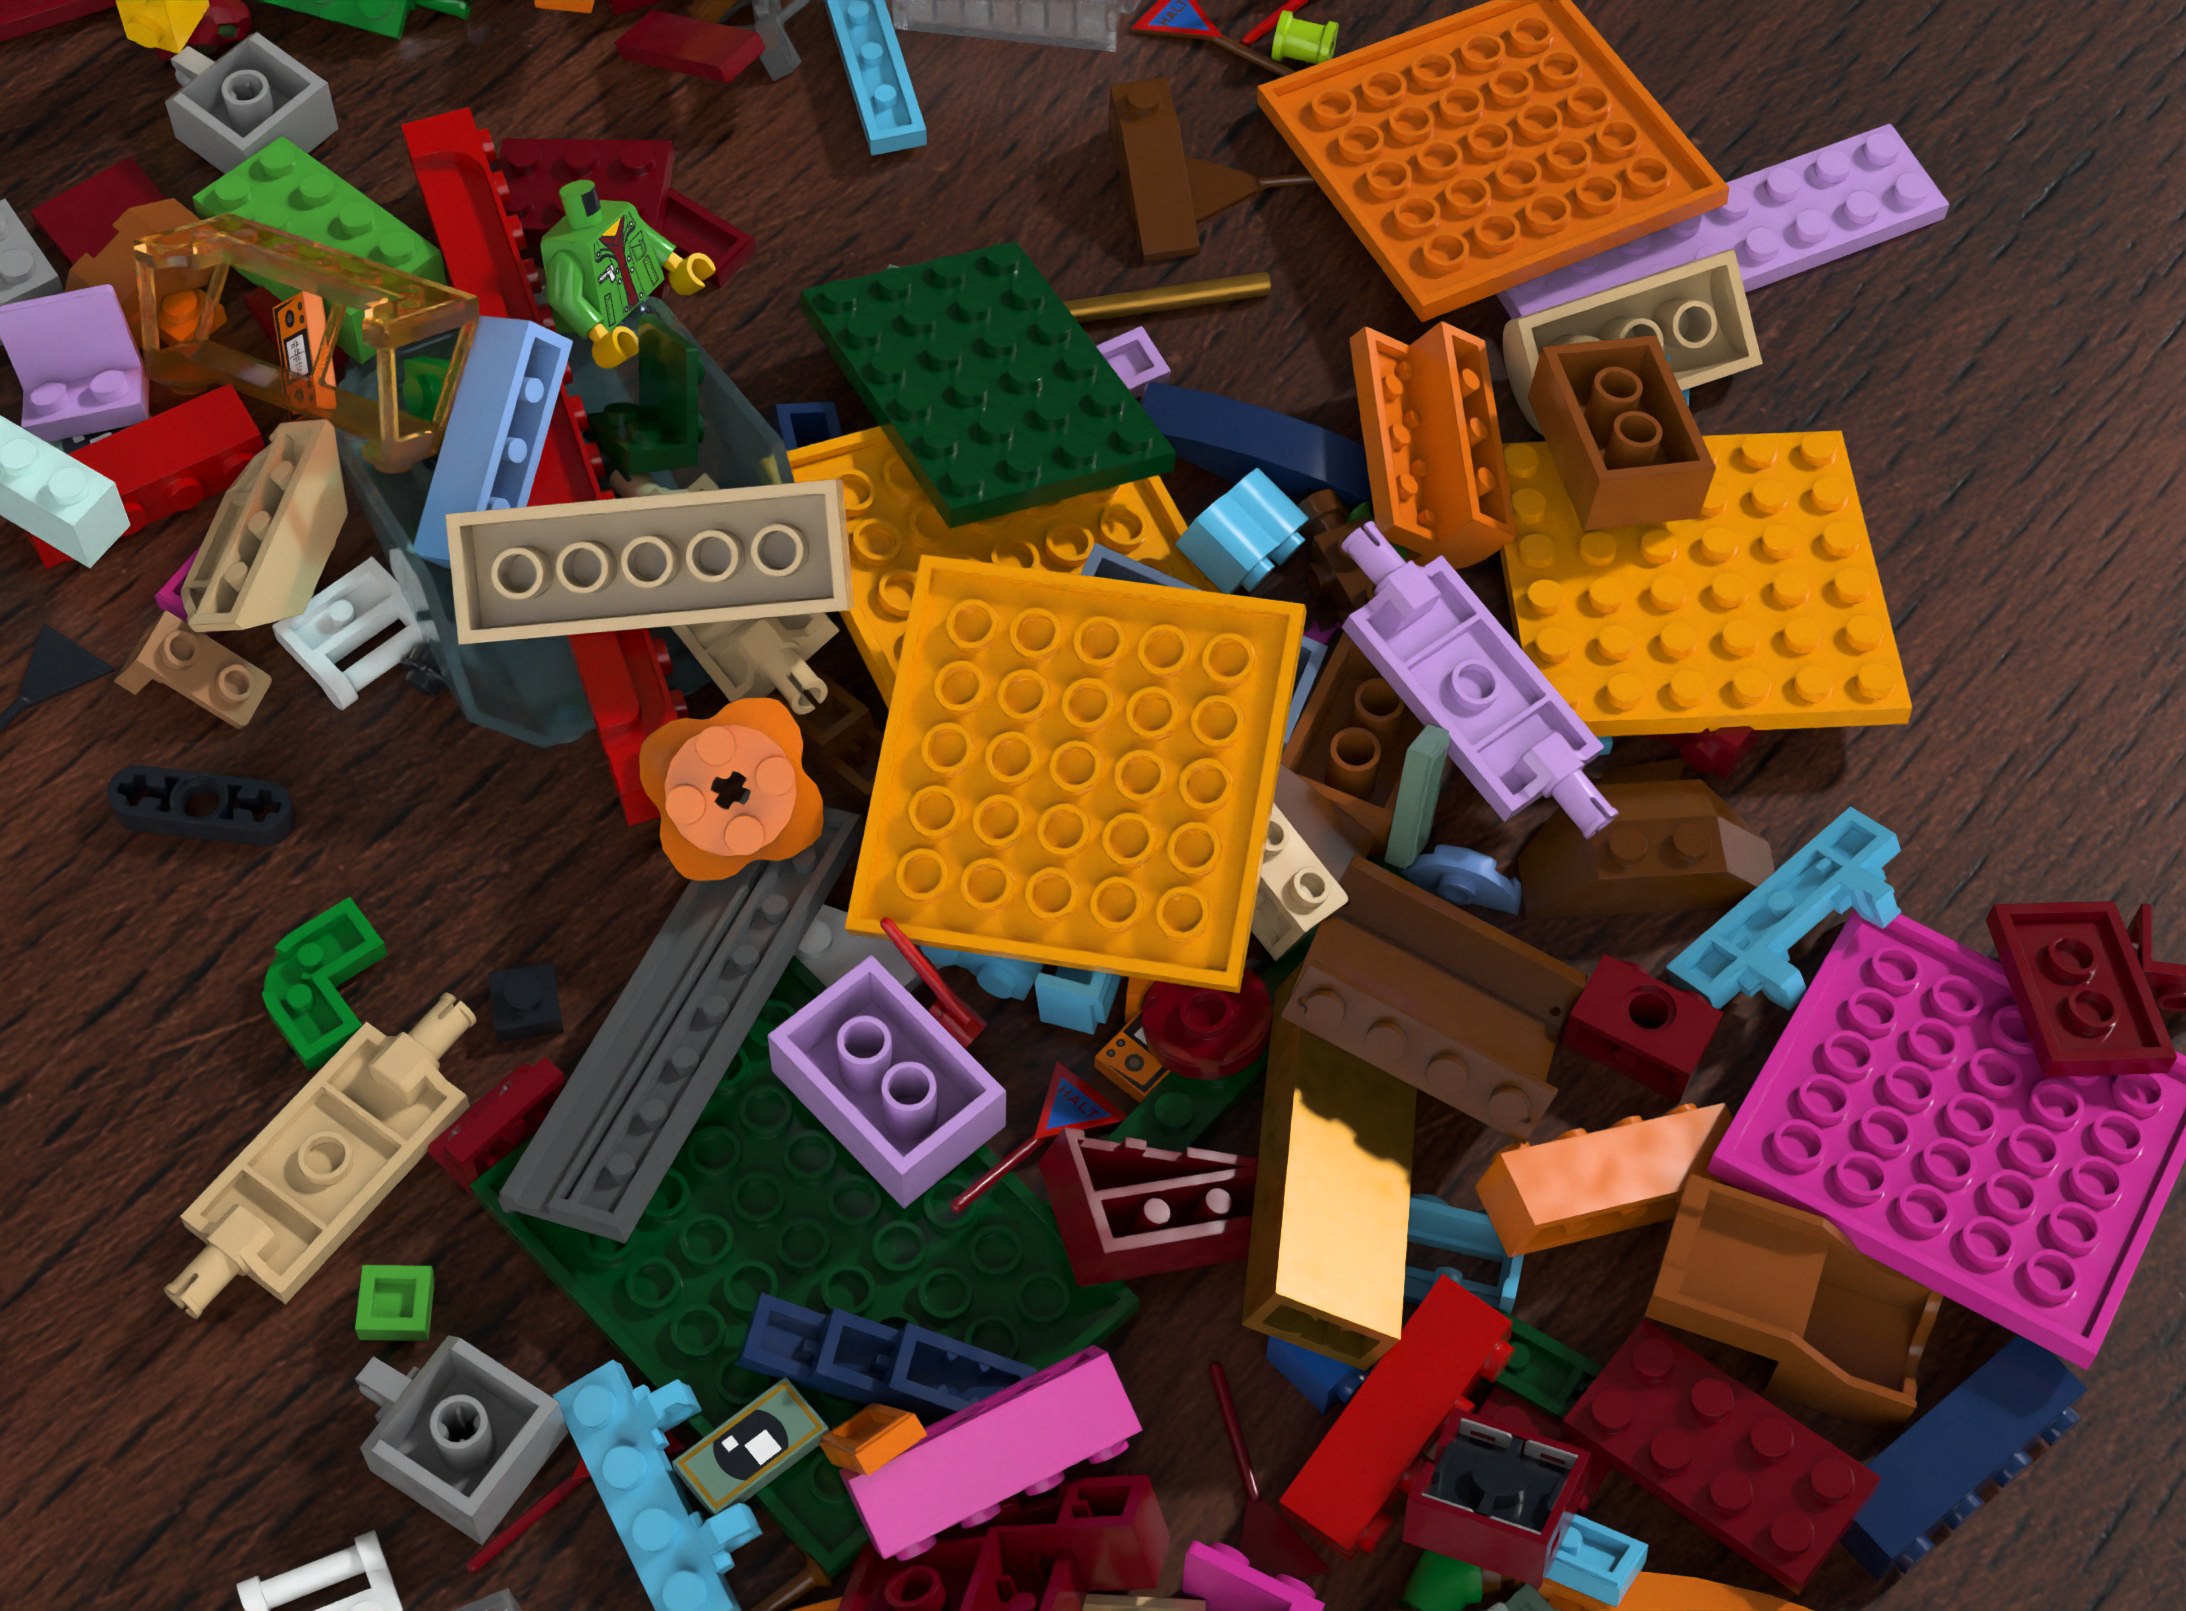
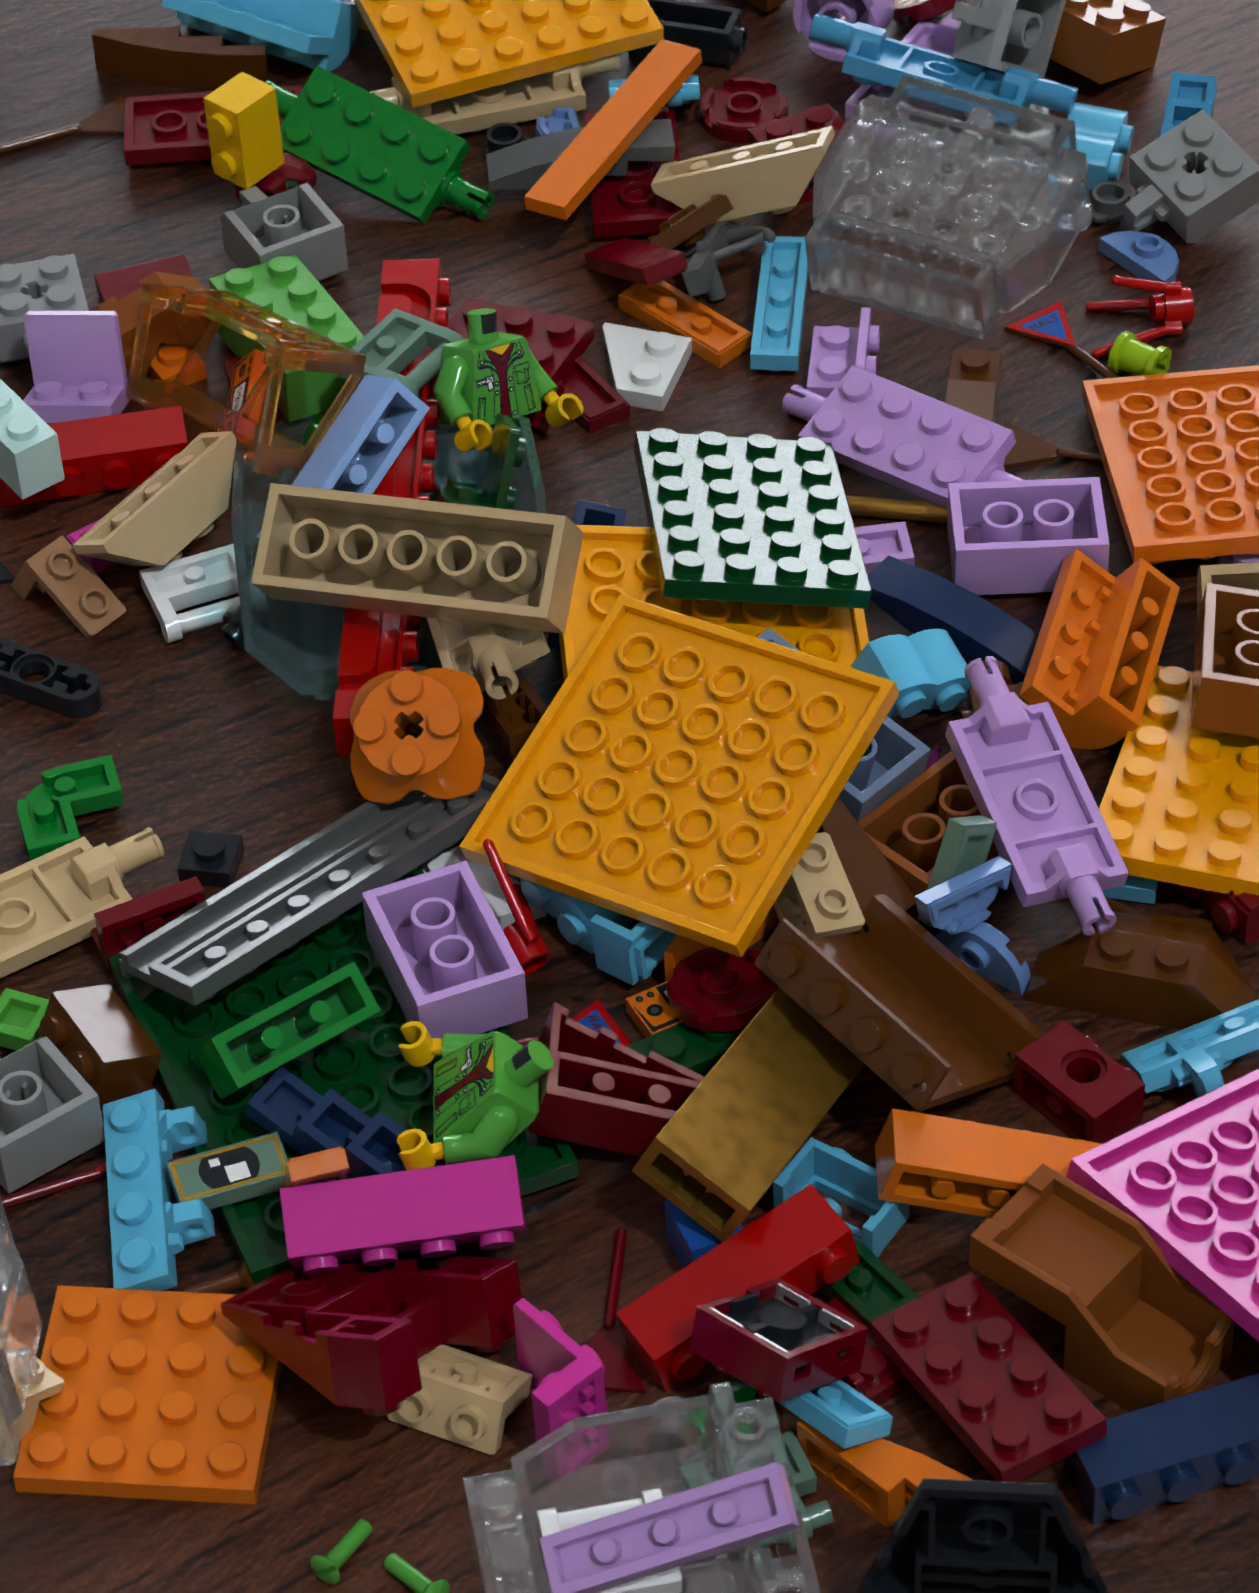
camera: 25 degrees right, 15 degrees down
(475, 249) = (398, 342): none -> sand green plate
(514, 1311) = (101, 1041): none -> reddish brown brick
(745, 177) = (645, 363): none -> white wing
(747, 1242) = (287, 1030): none -> green brick
(773, 110) = (677, 313): none -> orange tile
(974, 120) = (840, 347): none -> lavender bracket
(1016, 1265) = (481, 1094): none -> bright green torso
(1103, 216) = (903, 435): none -> lavender plate
(1285, 312) = (1019, 532): none -> lavender brick
(1436, 834) = (964, 900): none -> medium blue plate

